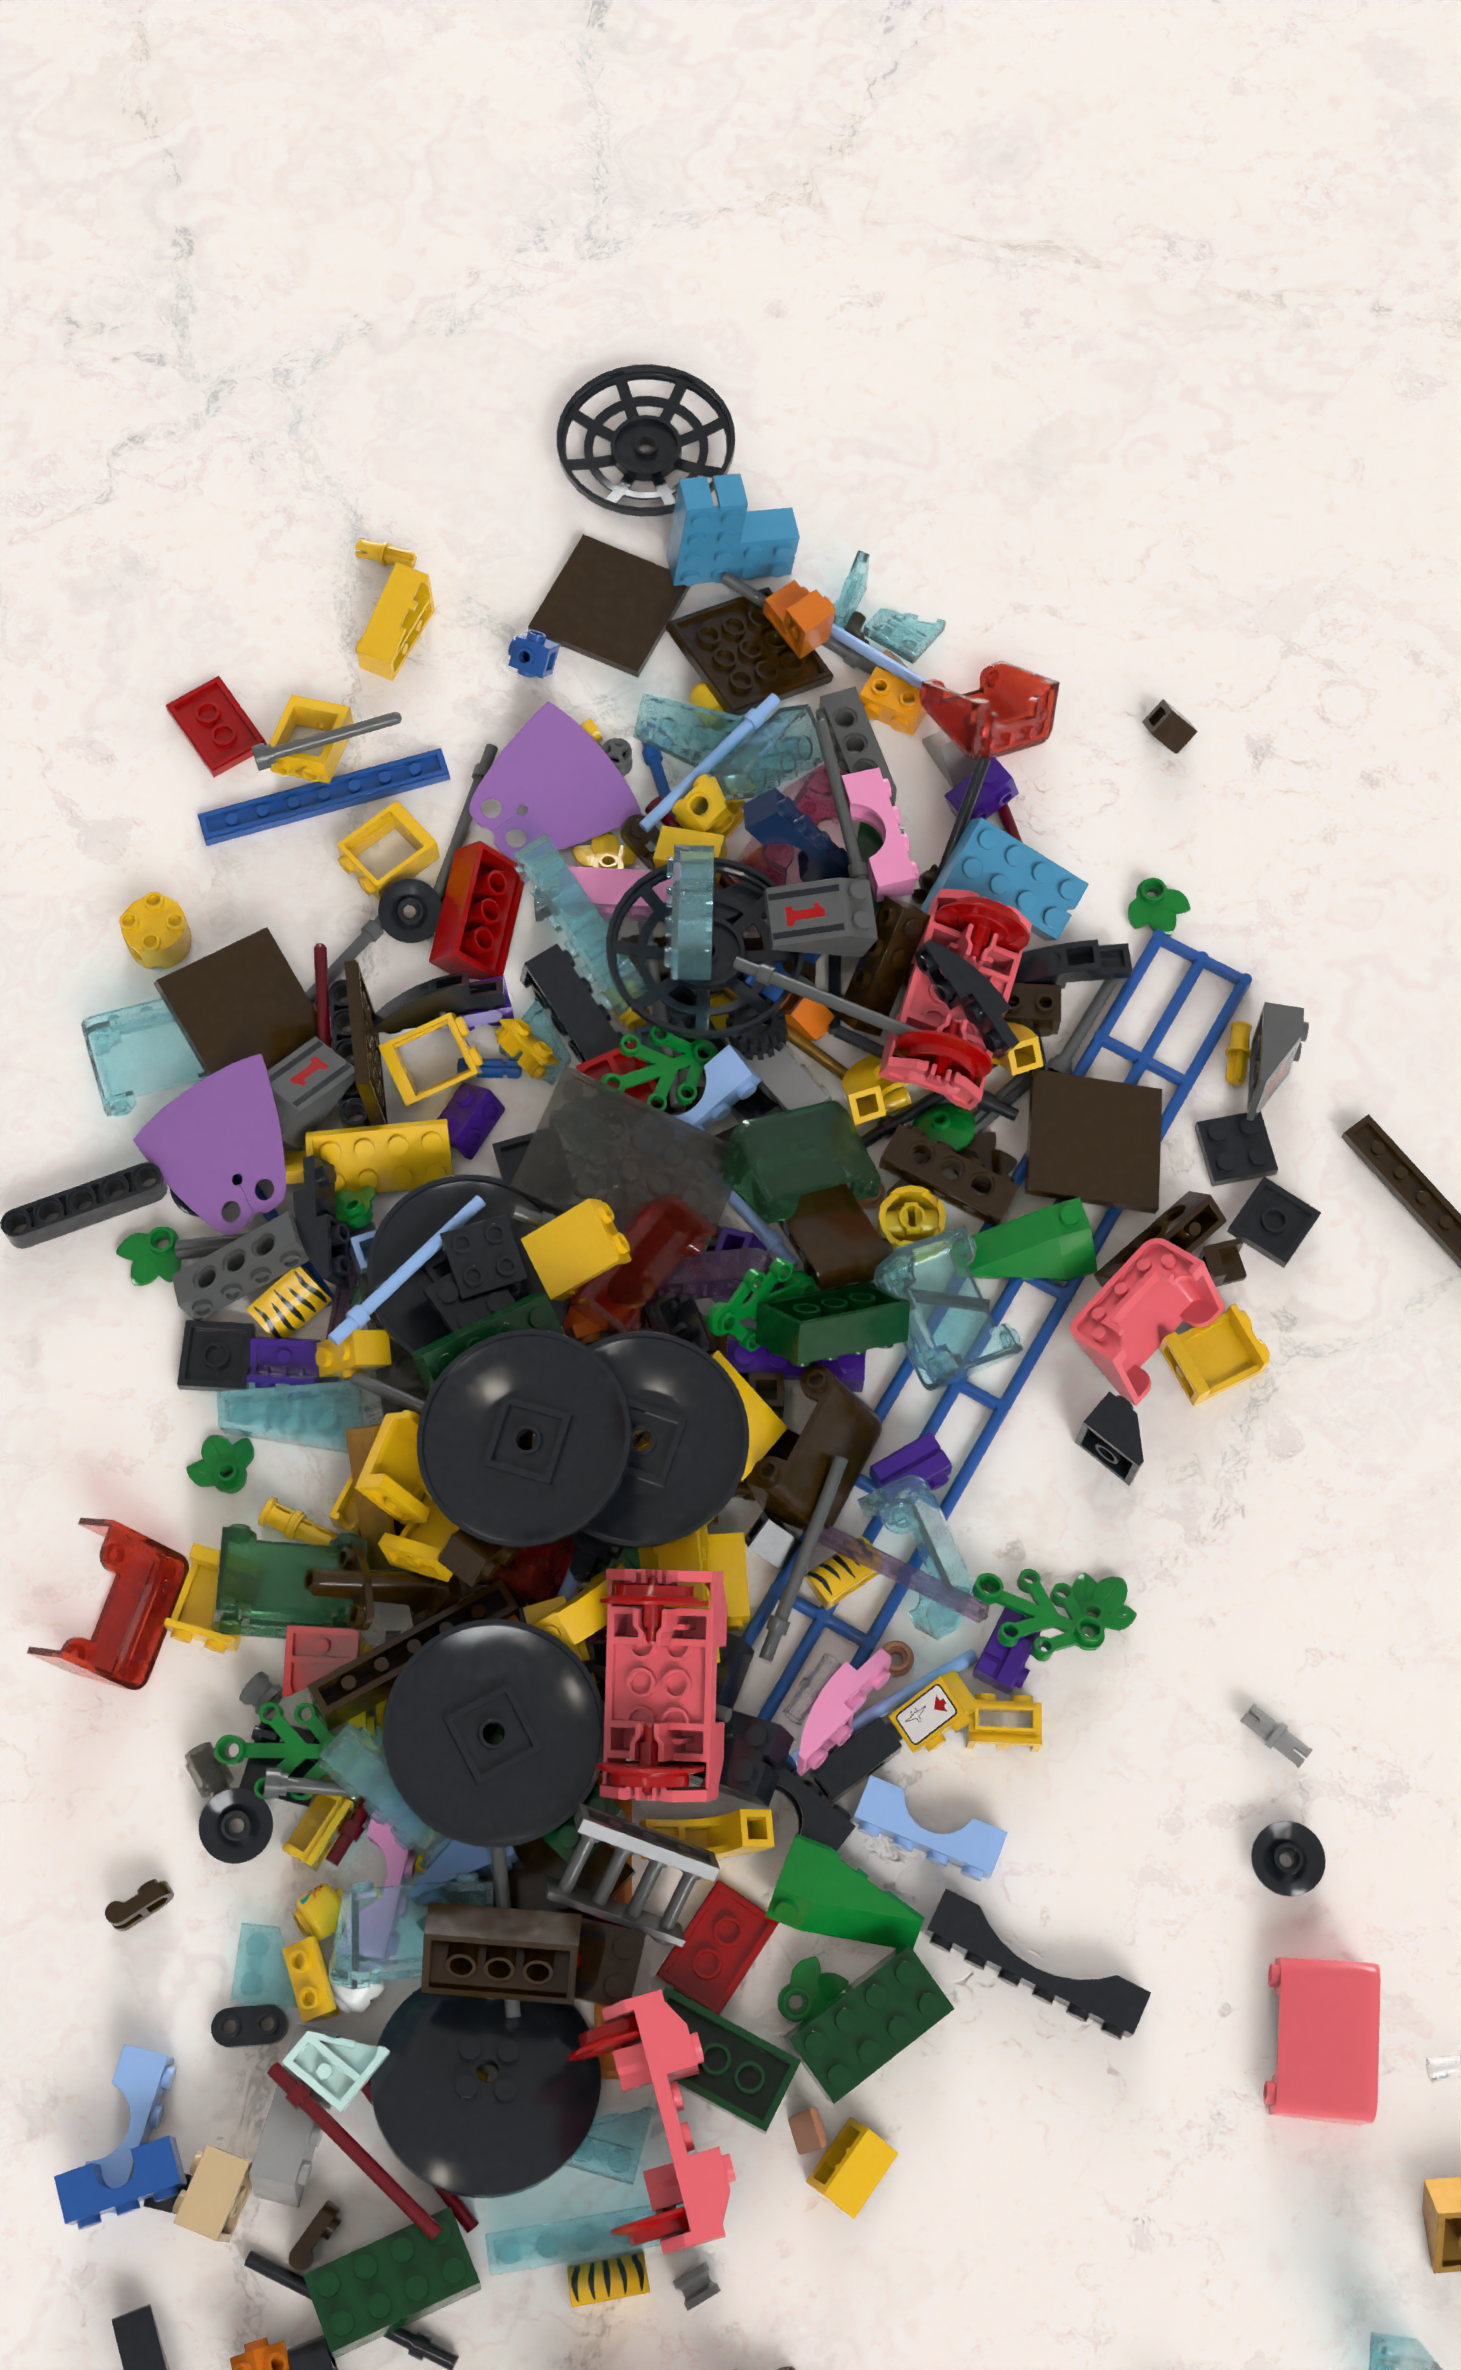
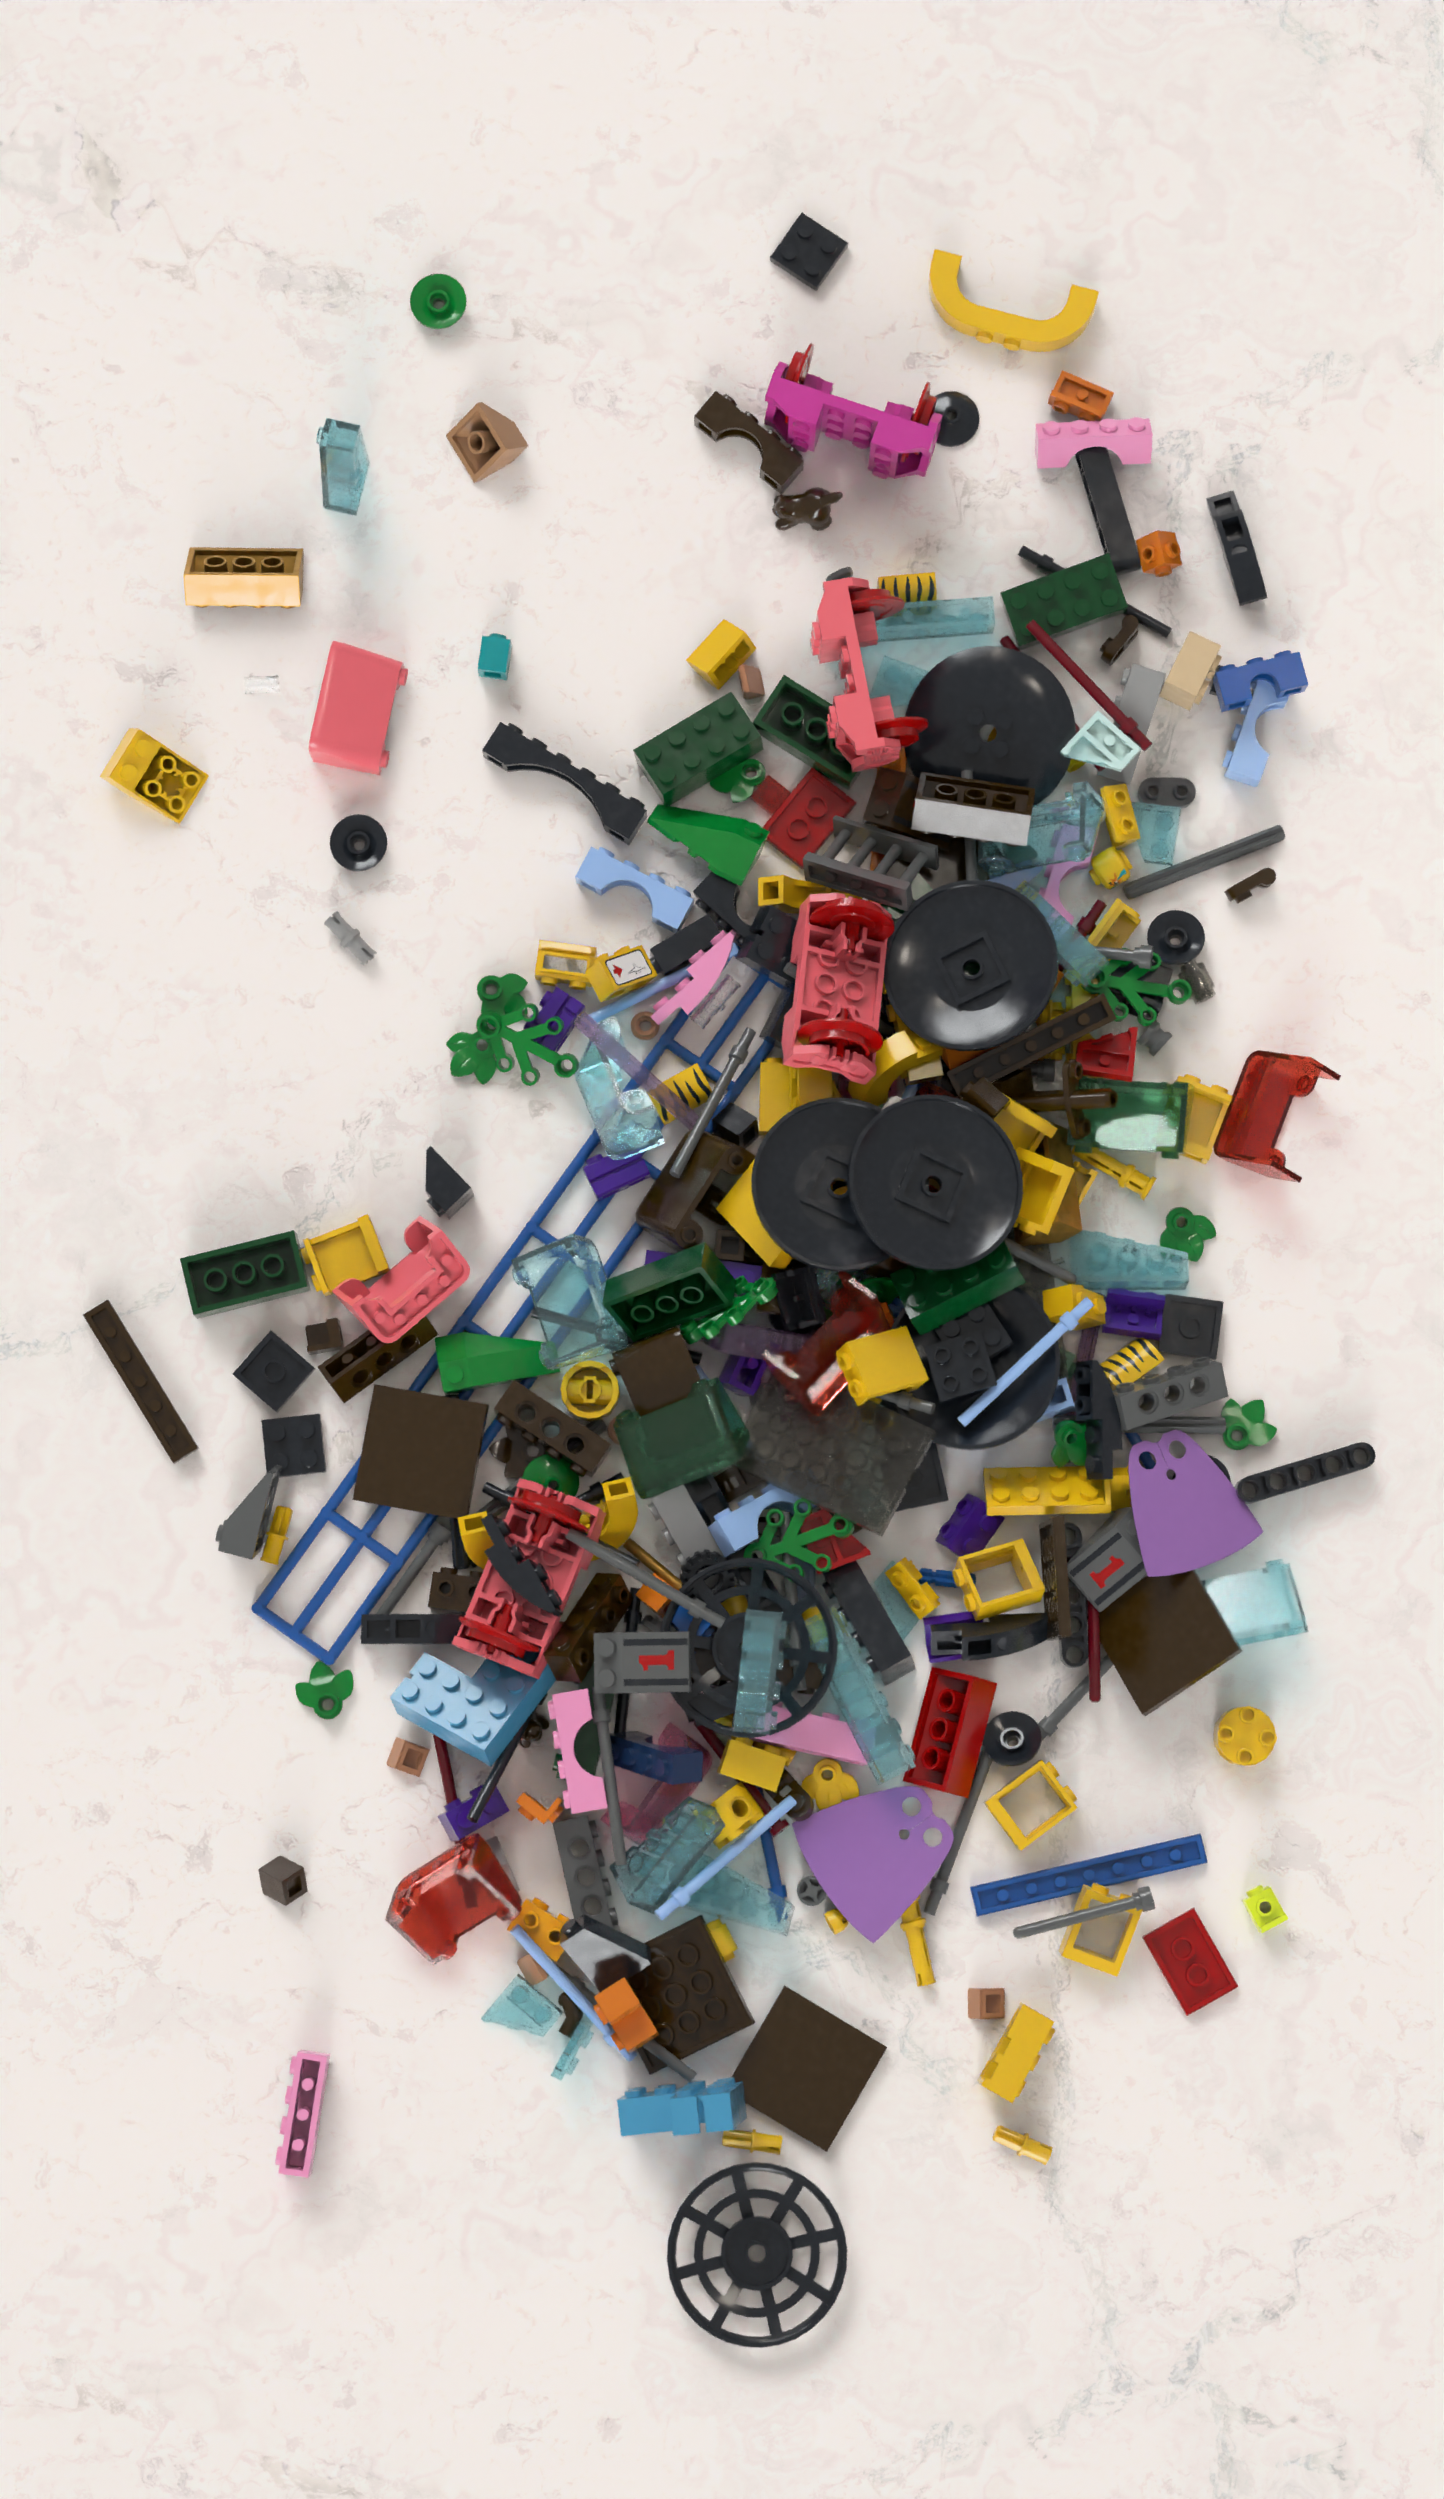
camera: 175 degrees left, 15 degrees up
(136, 774) = (1266, 1920): none -> neon yellow brick
(199, 1934) = (1204, 862): none -> dark grey axle
(428, 674) = (986, 2003): none -> nougat slope
(499, 712) = (913, 1925): none -> yellow pin
(533, 654) = (884, 2008): blue brick -> none
(649, 538) = (752, 2141): none -> yellow axle
(768, 1975) = (770, 795): none -> clear red plate
(828, 671) = (603, 1951): none -> black slope
(915, 800) = (533, 1809): none -> orange bracket
(1060, 849) = (407, 1757): none -> nougat slope
(1070, 1677) = (507, 996): none -> green plate
(1111, 524) = (304, 2113): none -> bright pink brick
(1153, 2133) = (494, 656): none -> teal brick
(1329, 1318) = (245, 1274): none -> dark green brick

